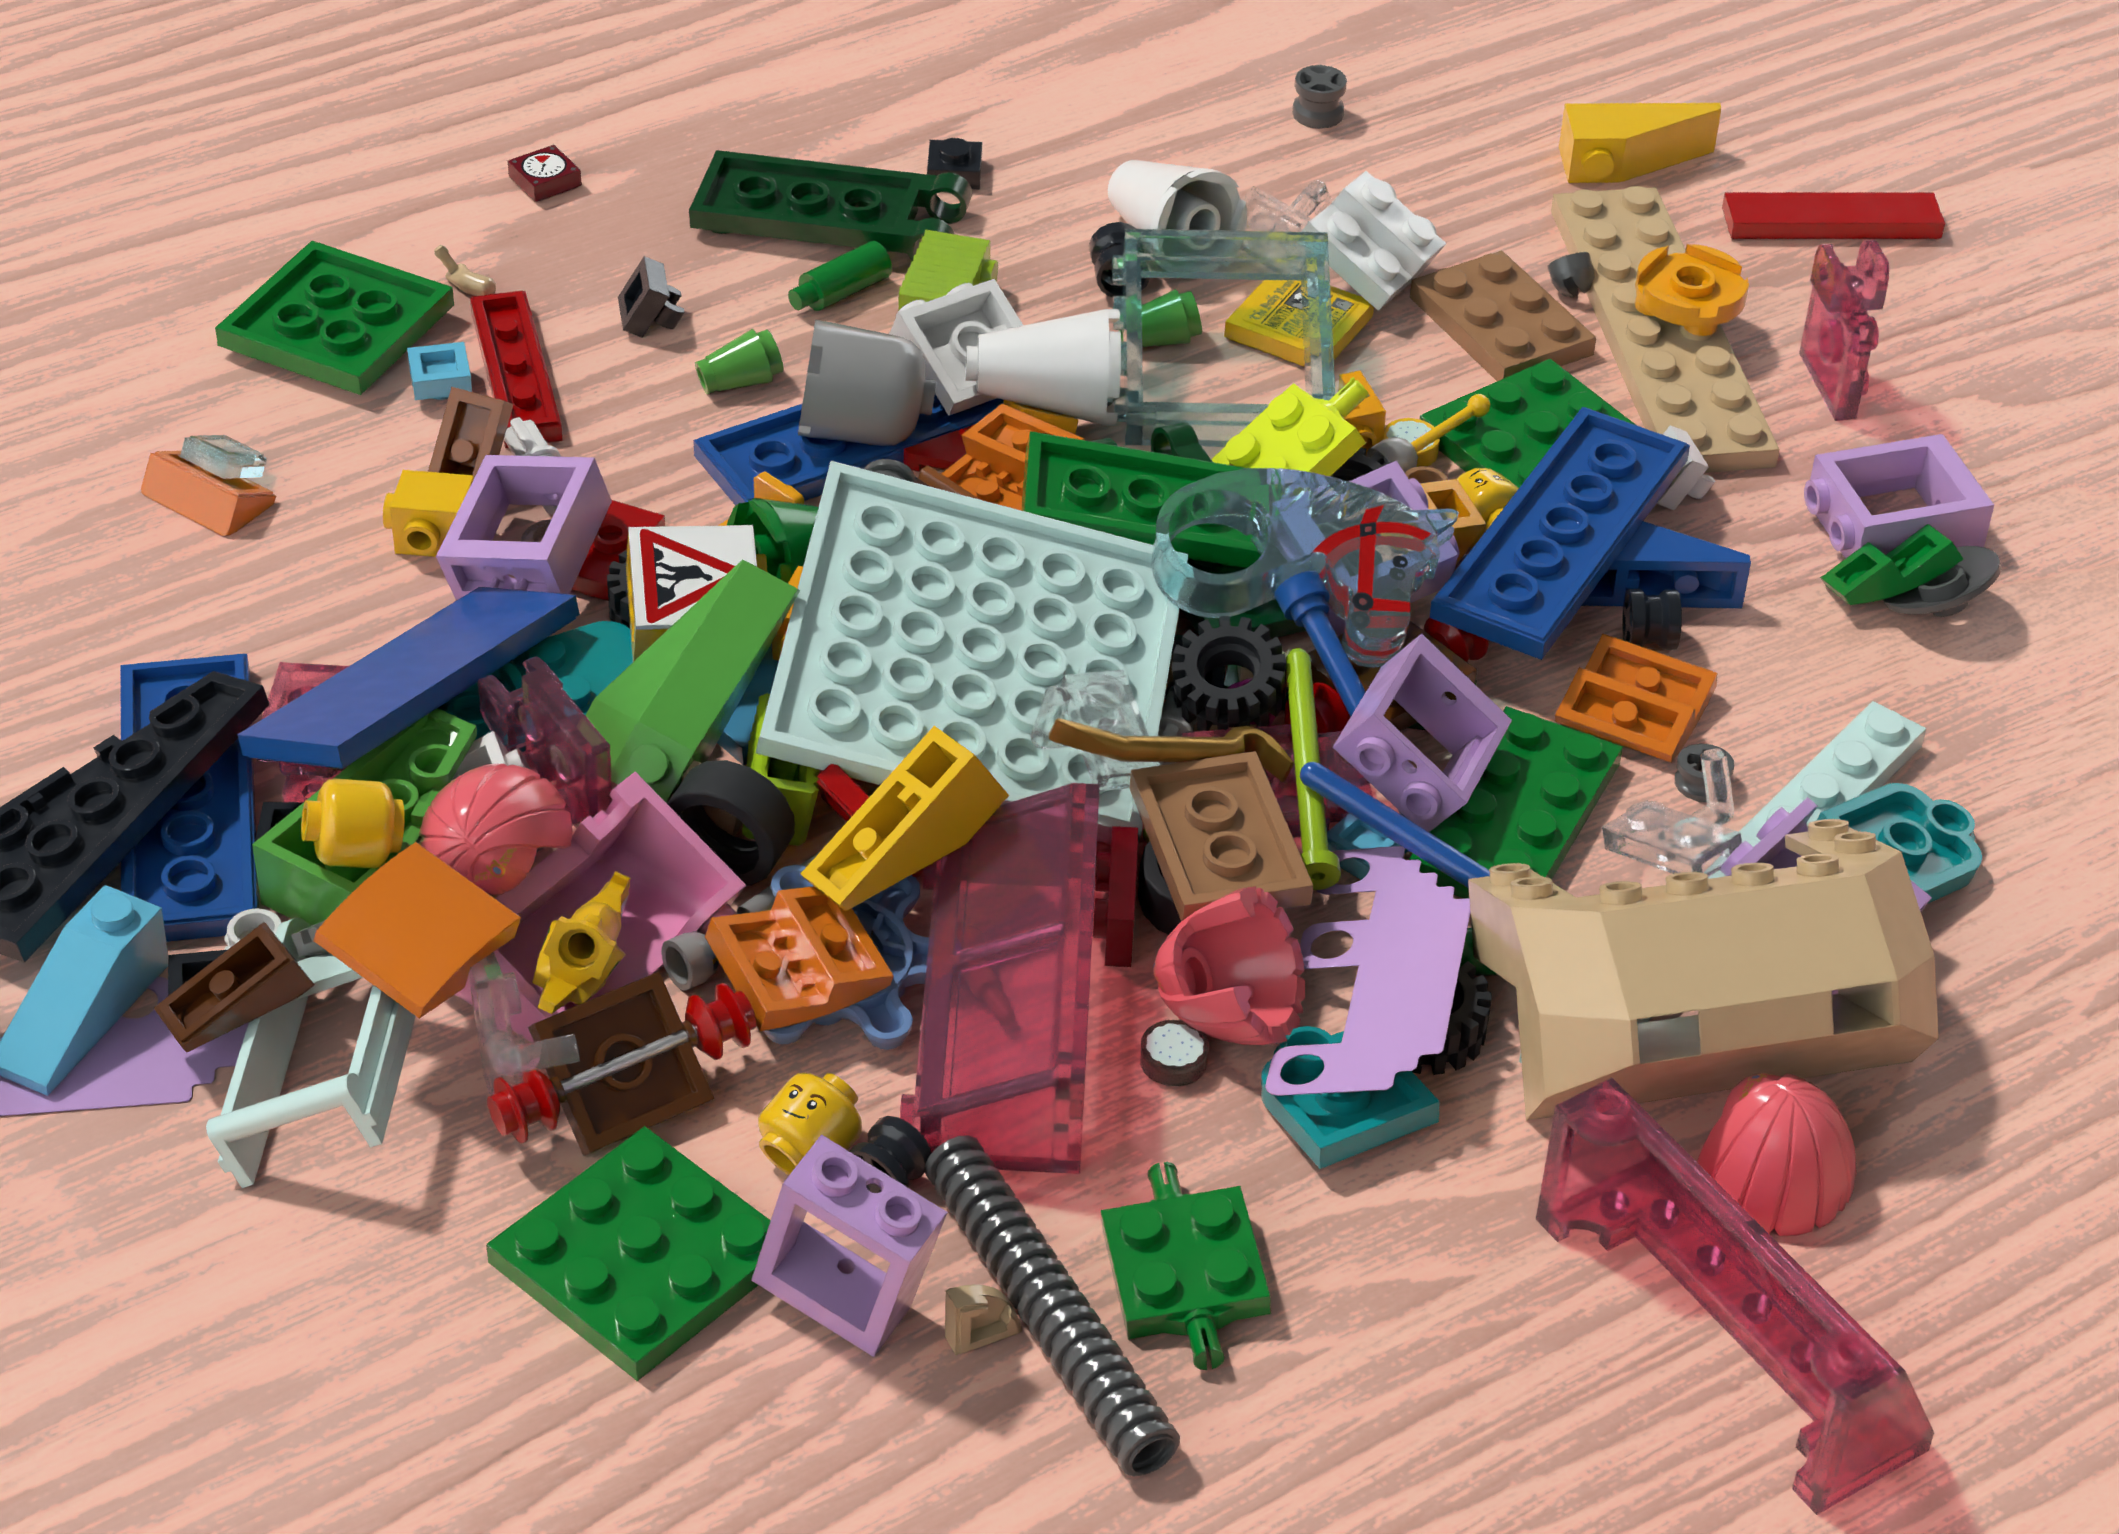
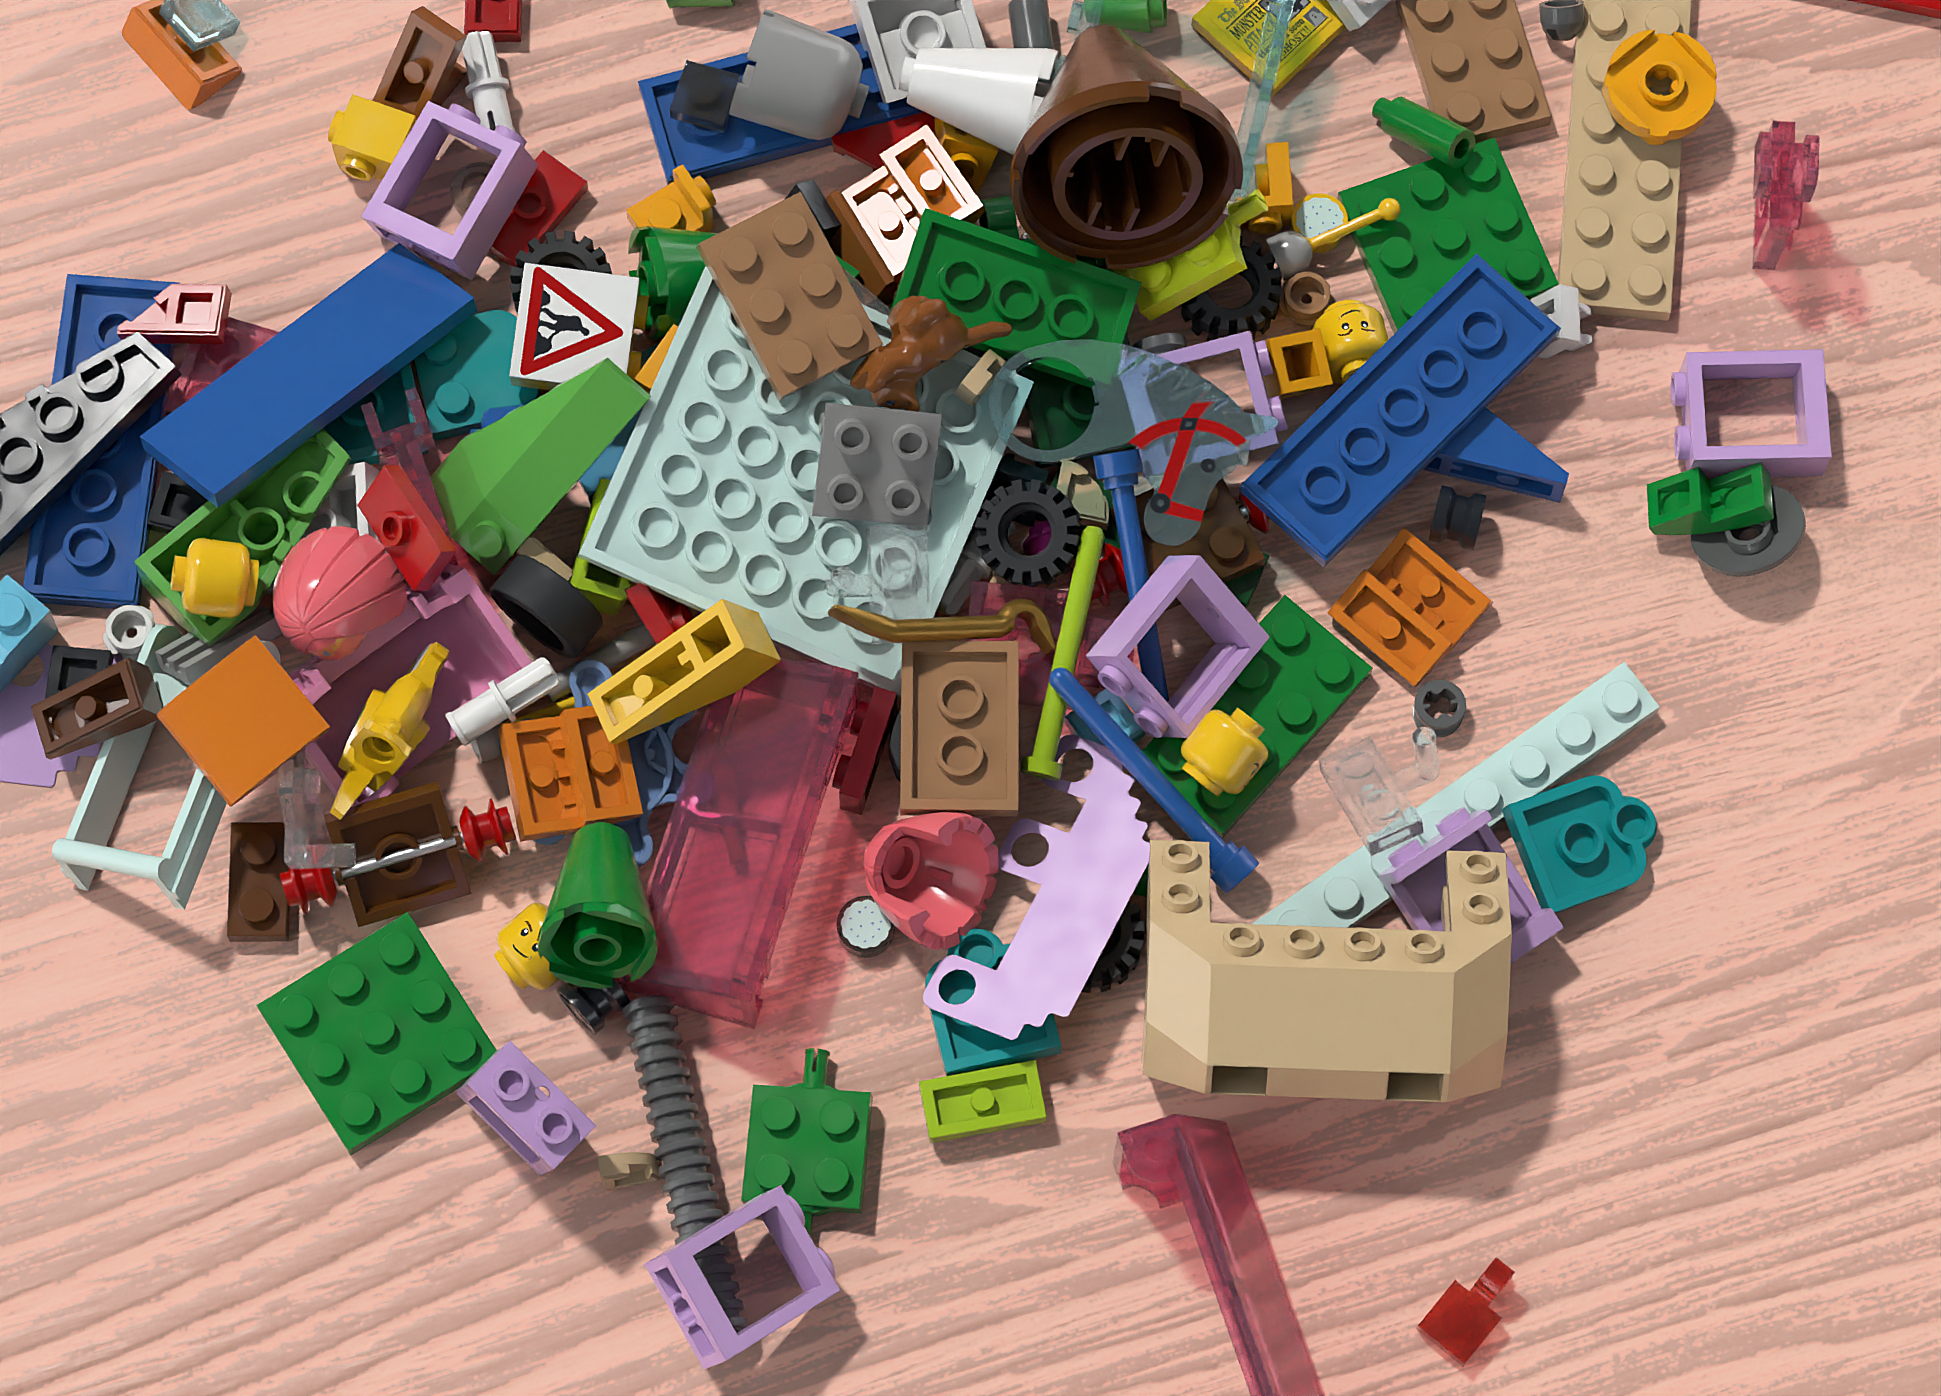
camera: 15 degrees right, 30 degrees up
(269, 659) = (184, 315): none -> tile
(460, 1138) = (255, 894): none -> reddish brown plate
(561, 746) = (406, 527): none -> red plate
(704, 899) = (503, 700): none -> white axle
(767, 432) = (704, 96): none -> clear smoke plate
(884, 1054) = (598, 912): none -> green cone
(920, 495) = (789, 296): none -> medium nougat plate
(1052, 617) = (876, 464): none -> light grey hinge
(1066, 511) = (921, 339): none -> dark orange animal
(1134, 545) = (979, 378): none -> tan tile
(1152, 1419) = (695, 1302): none -> lavender window
(1230, 343) = (1123, 158): none -> reddish brown cone
(1369, 1177) = (982, 1101): none -> lime plate
(1484, 355) = (1425, 130): none -> green cylinder
(1509, 811) = (1224, 751): none -> yellow head
(1782, 1153) = (1329, 1163): coral hair -> none
(1996, 1277) = (1463, 1317): none -> clear red plate

